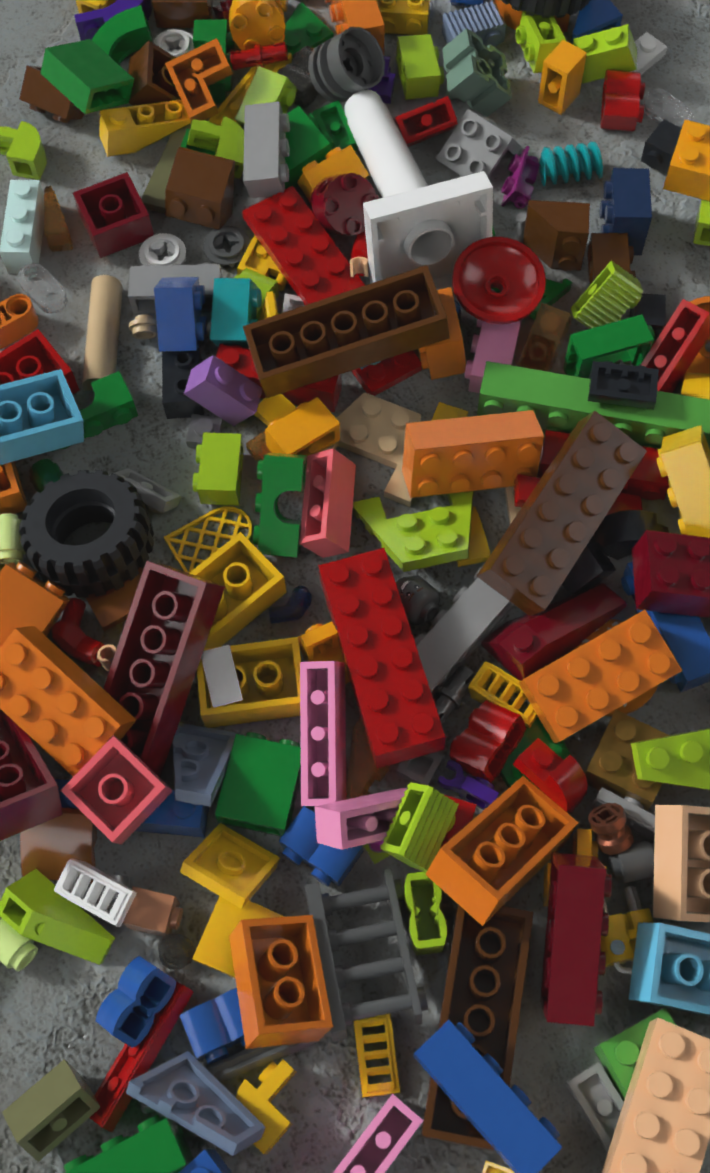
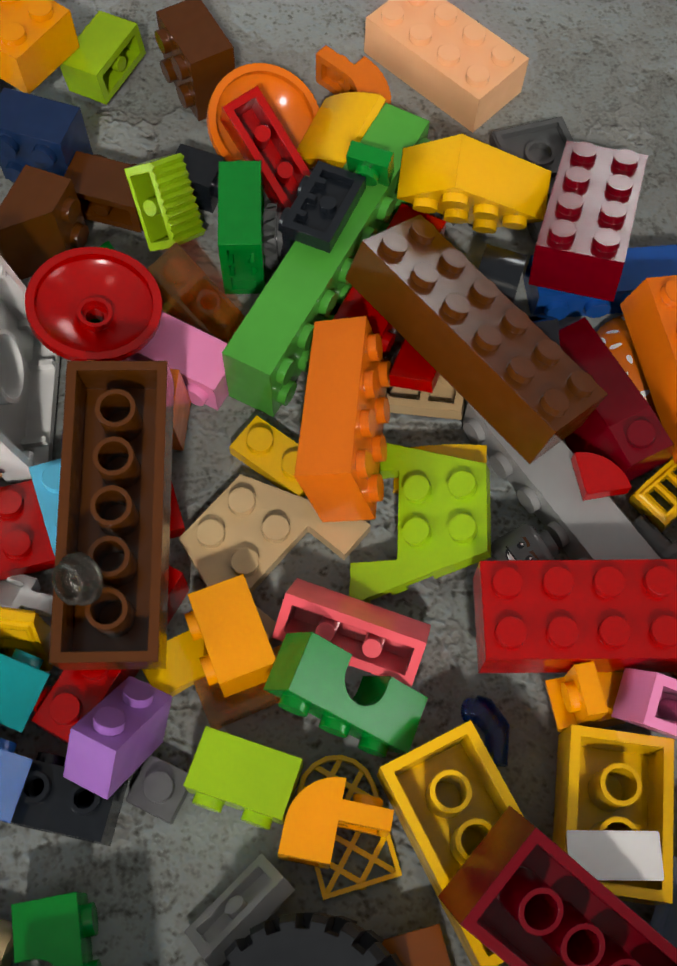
camera: 80 degrees left, 0 degrees up
(204, 513) = (318, 812): none -> light orange brick
(289, 318) = (77, 579): none -> clear smoke plate
(484, 626) = (598, 476): none -> red tile
(669, 403) = (371, 163): none -> green plate

